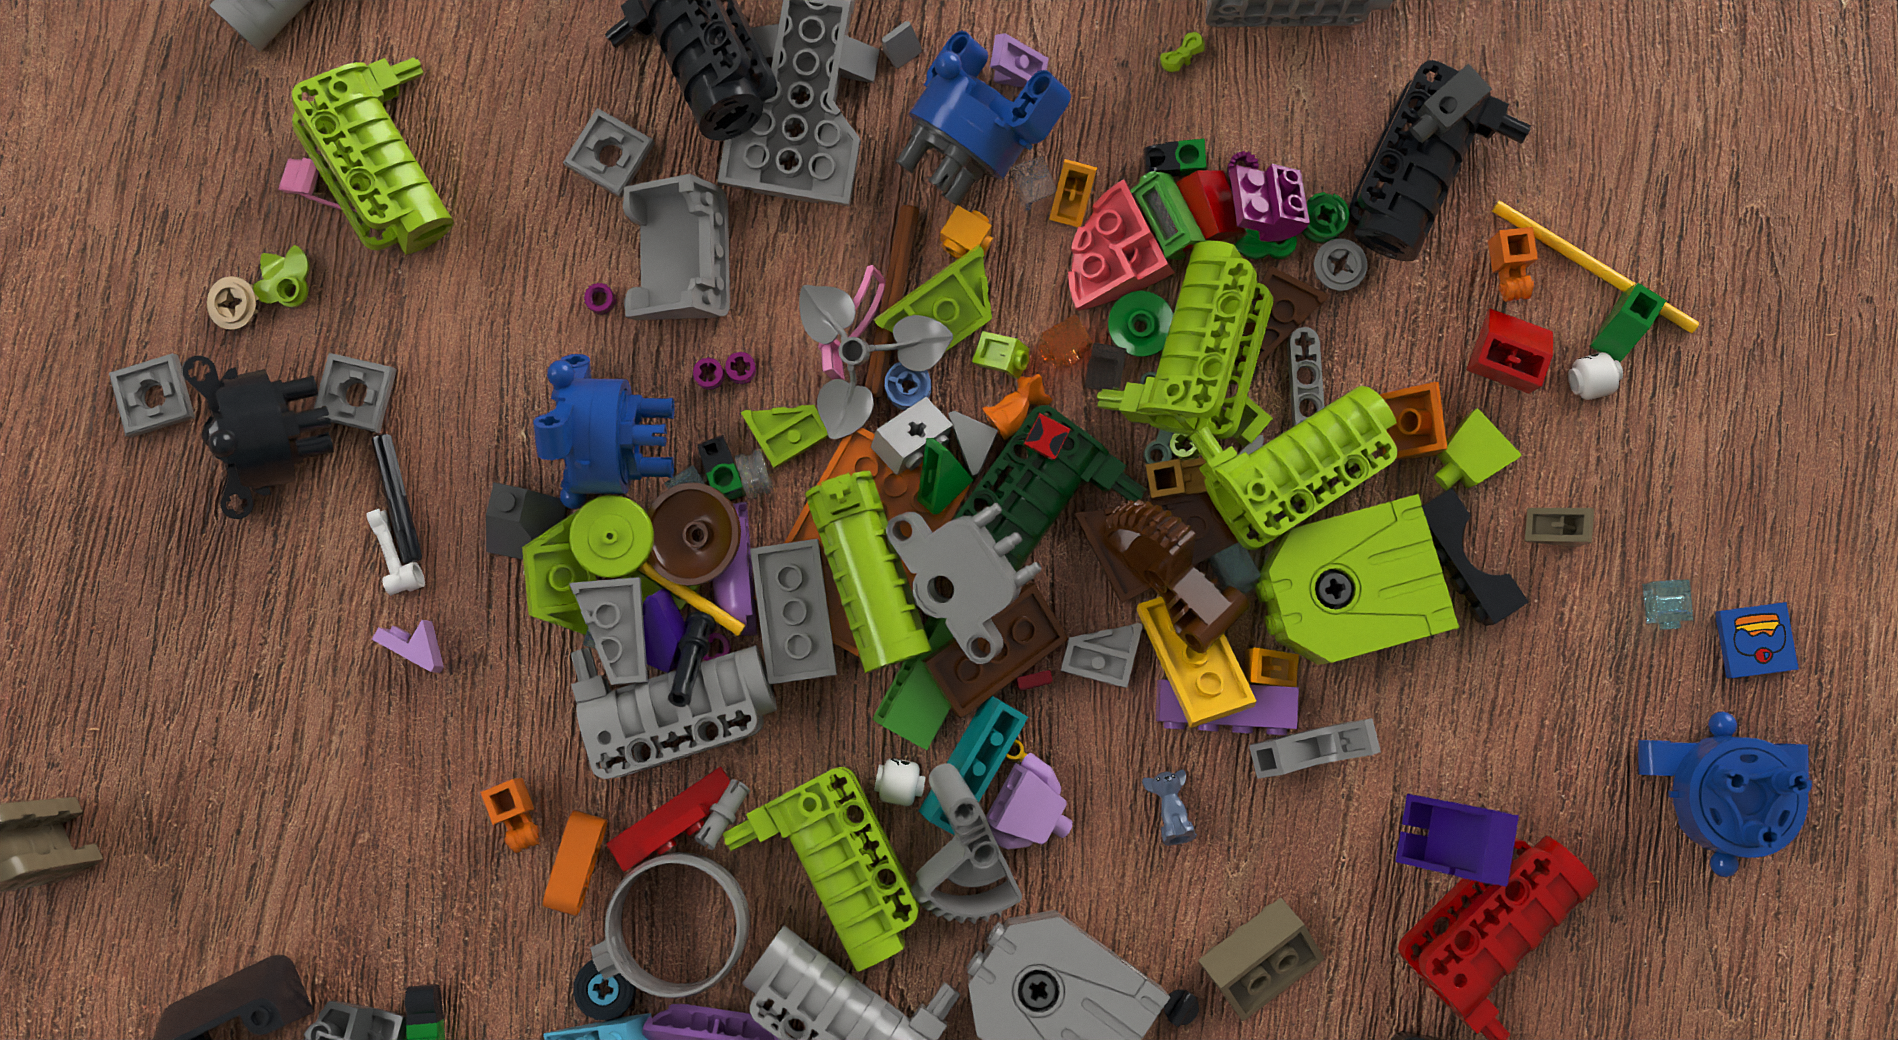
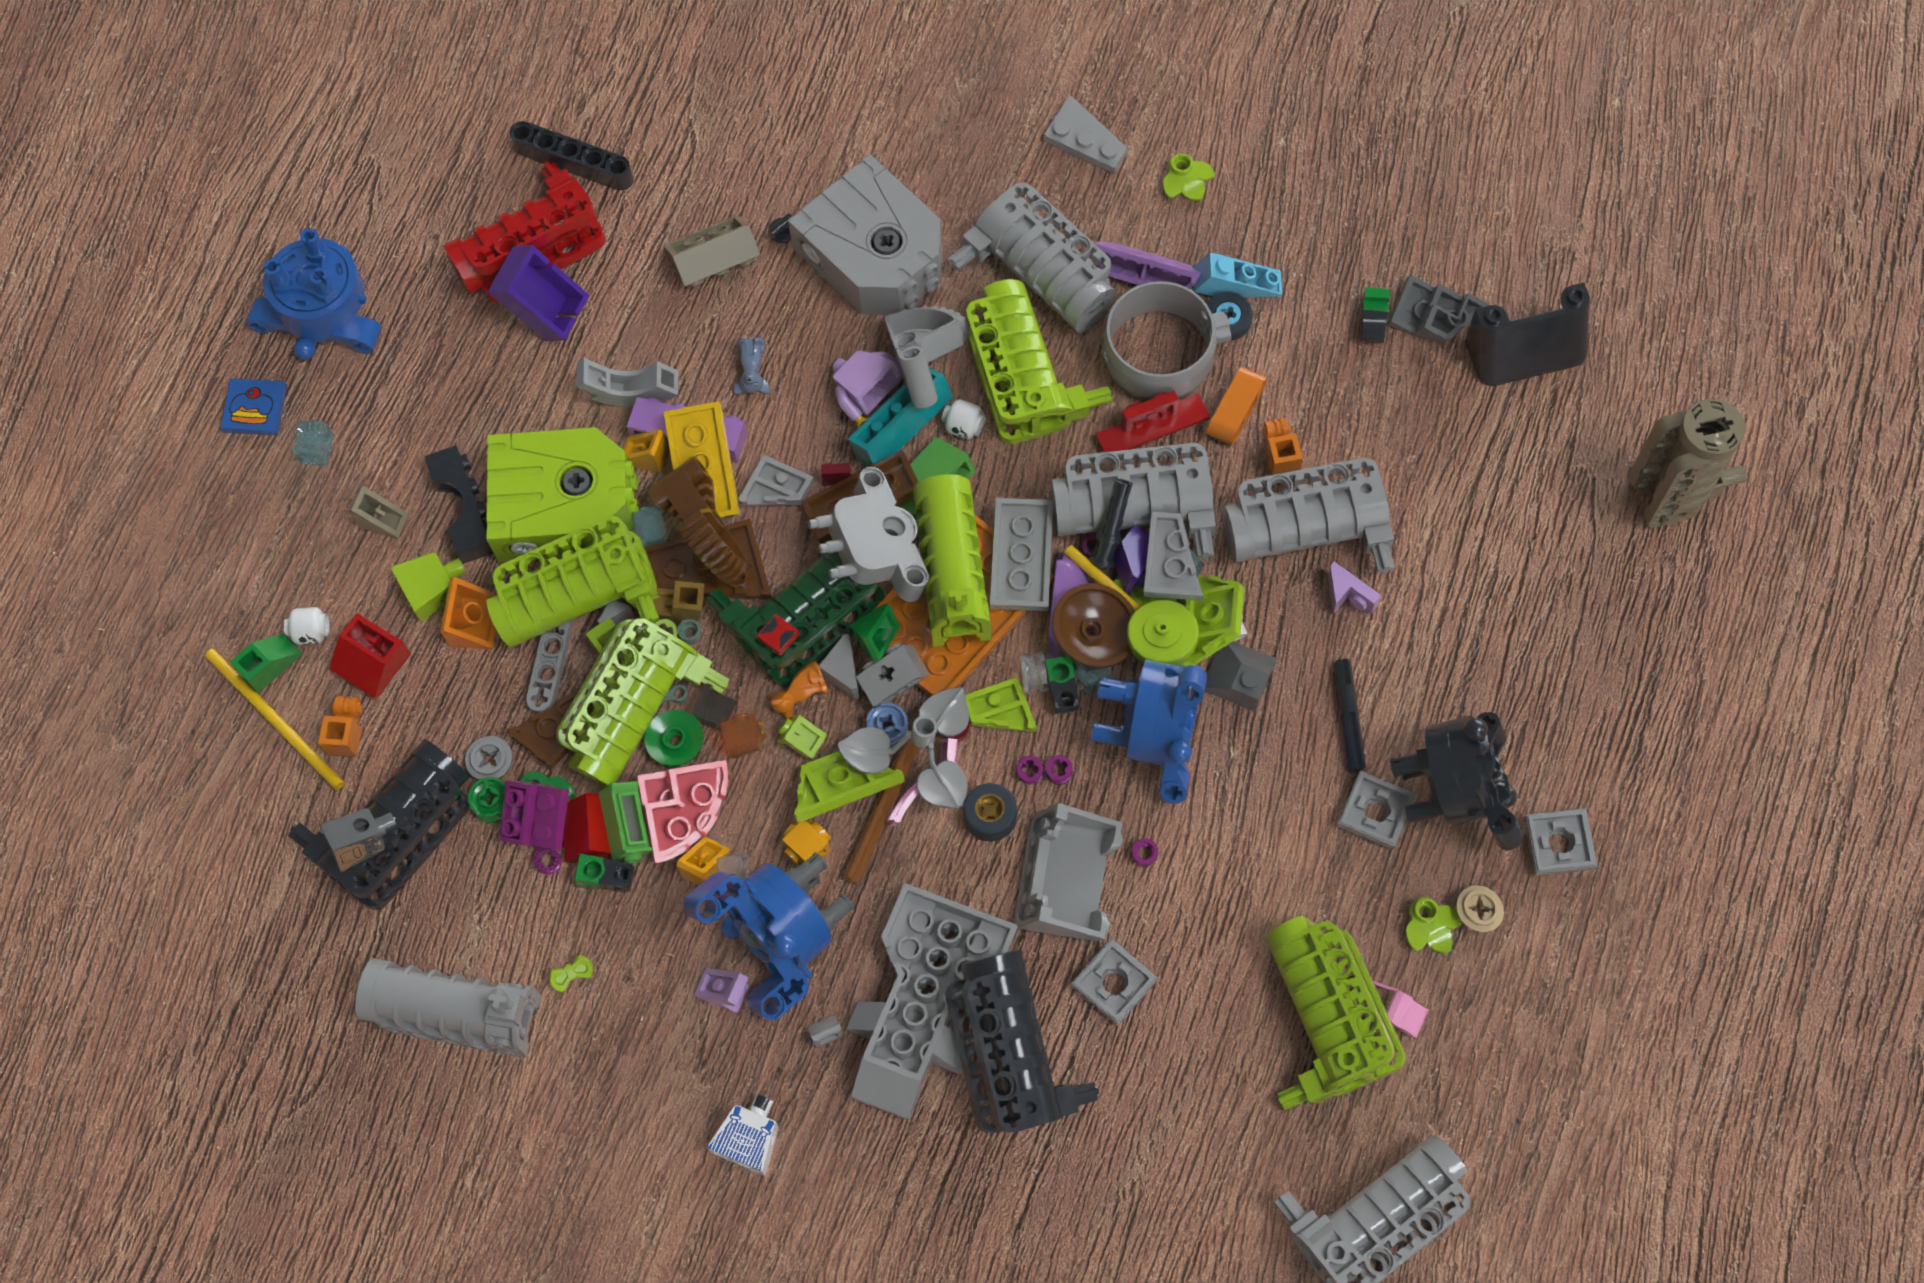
camera: 165 degrees left, 15 degrees down
(401, 577) = (1354, 649): white brick -> none
(460, 722) = (1311, 513): none -> light grey piece
(722, 814) = (1109, 414): light grey pin -> none
(764, 299) = (990, 801): none -> black wheel

